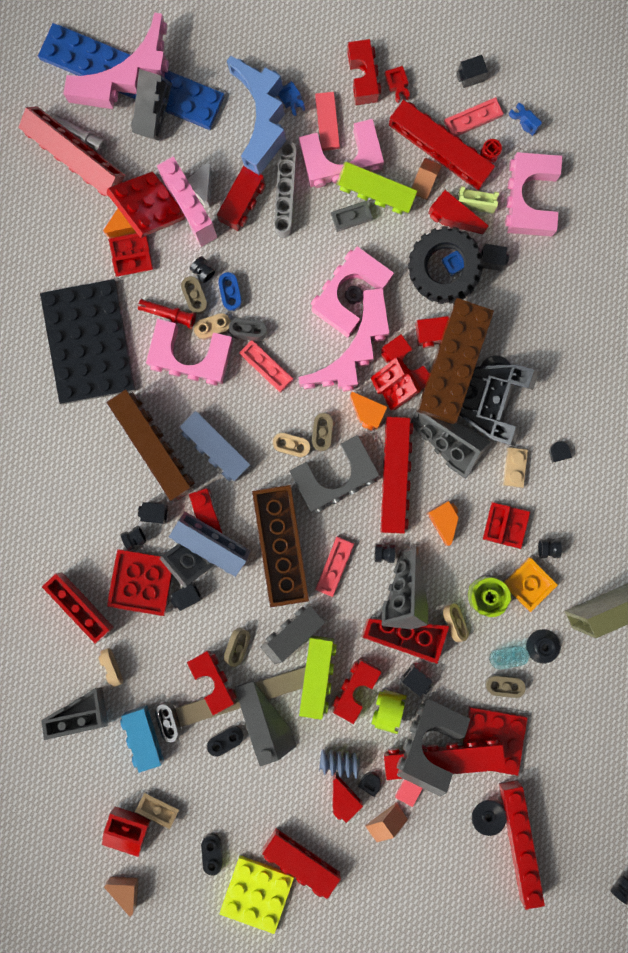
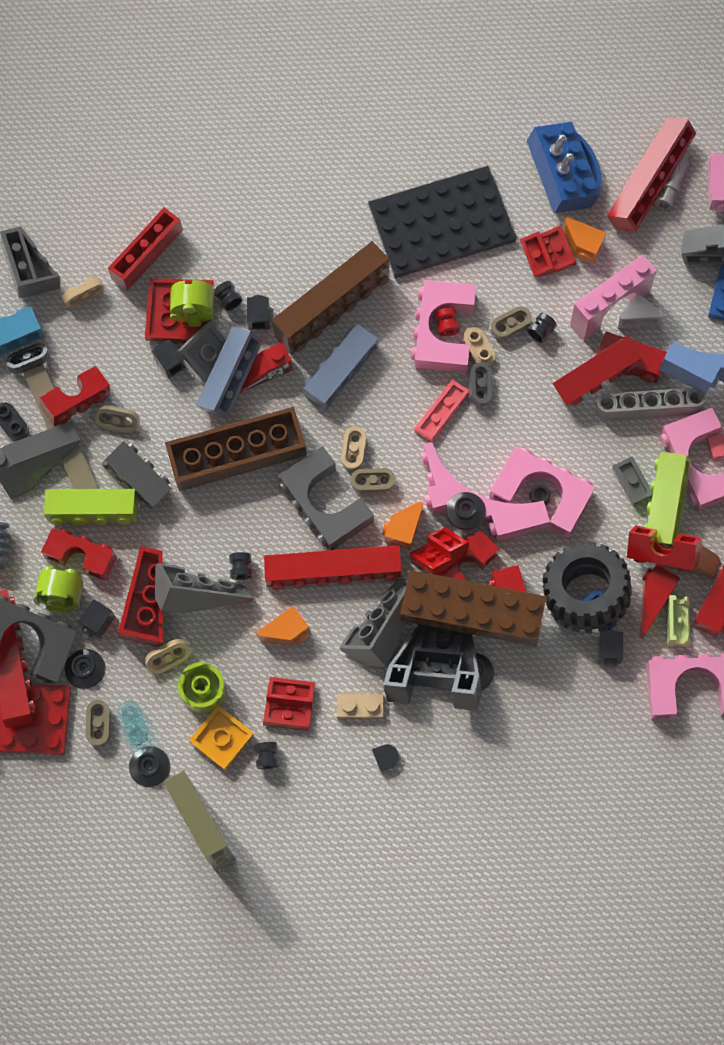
camera: 85 degrees right, 15 degrees down
(53, 225) = (564, 167): none -> blue piece
(141, 570) = (192, 302): none -> lime brick
(146, 204) = (601, 251): red plate -> none
(175, 315) = (484, 306): red pin -> none
(186, 349) = (447, 322): none -> red wheel
(230, 292) = (520, 359): blue plate -> none
(253, 225) = (598, 370): none -> red brick
(334, 566) = (219, 515): coral tile -> none
(361, 365) = (465, 520): none -> black piece
(431, 183) = (645, 548): none -> red arch
(448, 686) = (88, 677): none -> black piece

